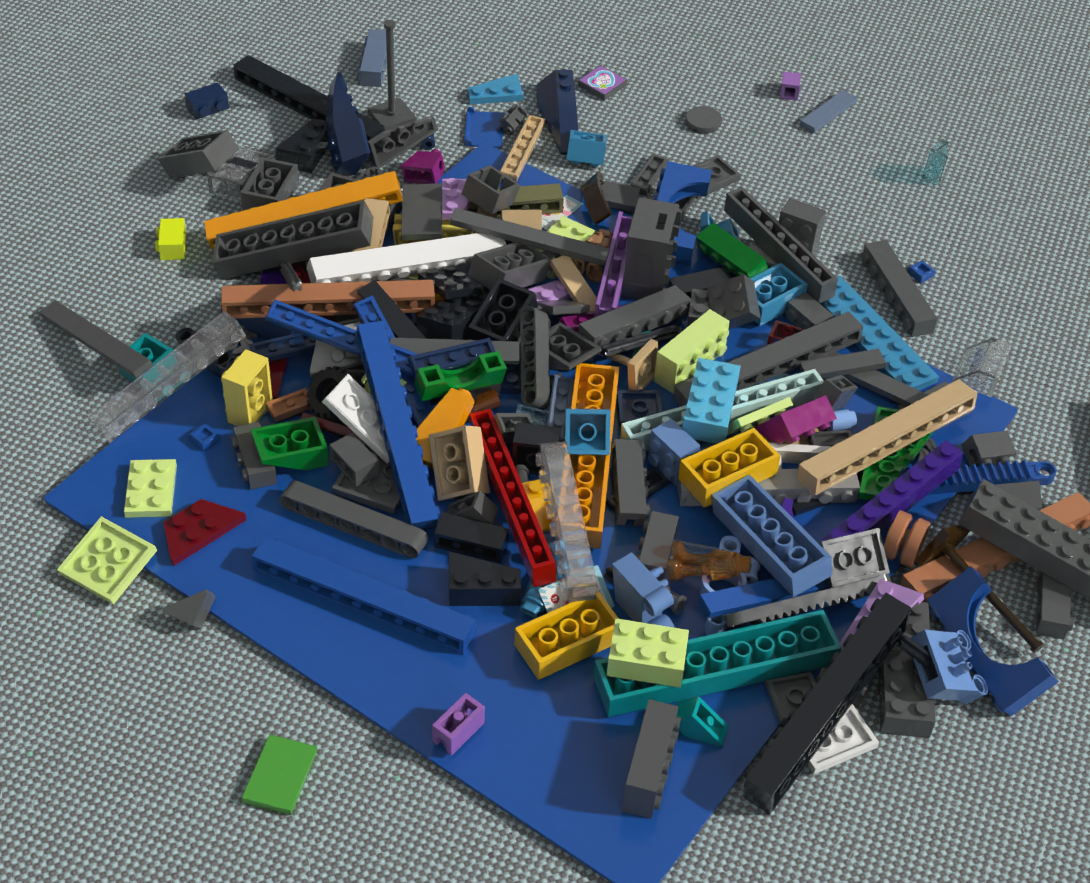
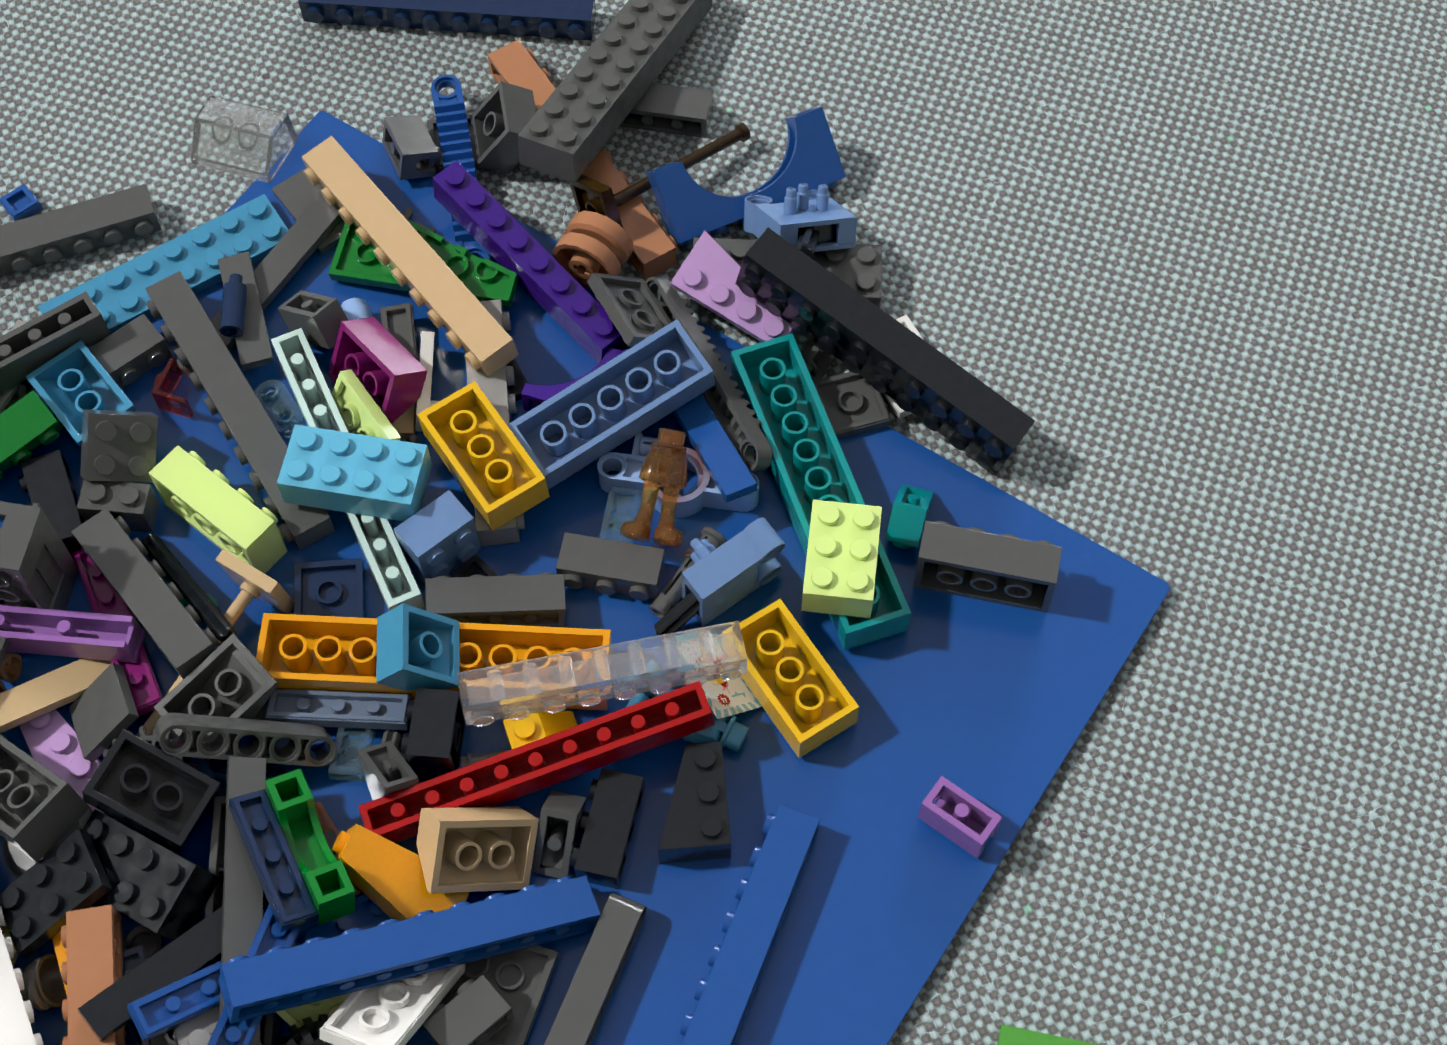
camera: 90 degrees left, 15 degrees up
(840, 353) = (233, 307): none -> dark blue cylinder

